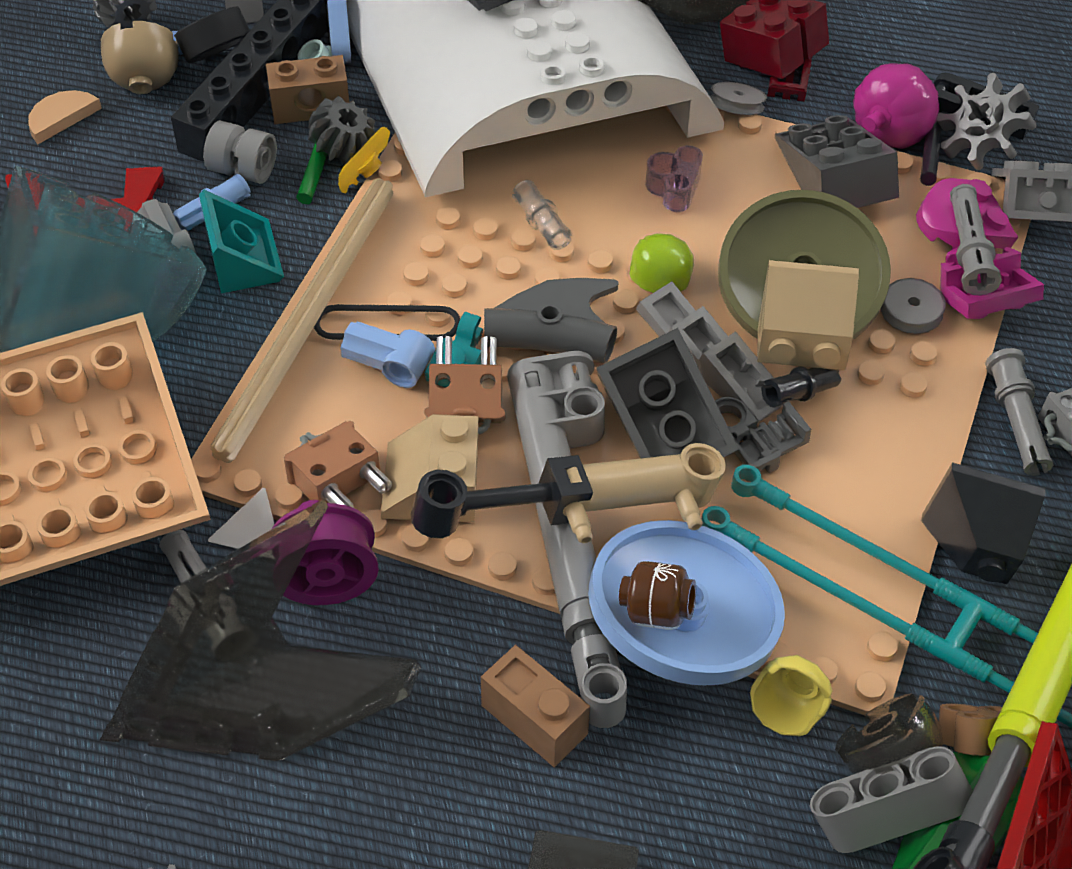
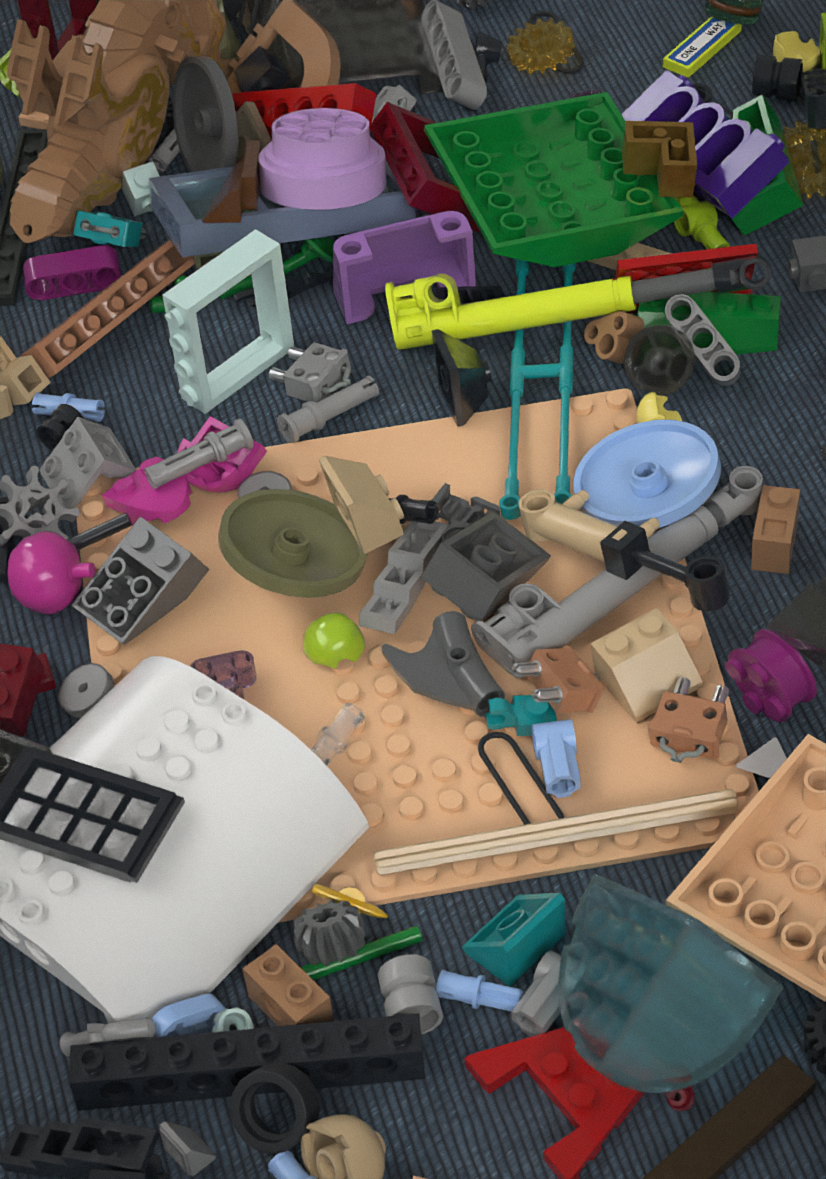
camera: 115 degrees left, 5 degrees down
(658, 595) = (673, 459): reddish brown head -> none

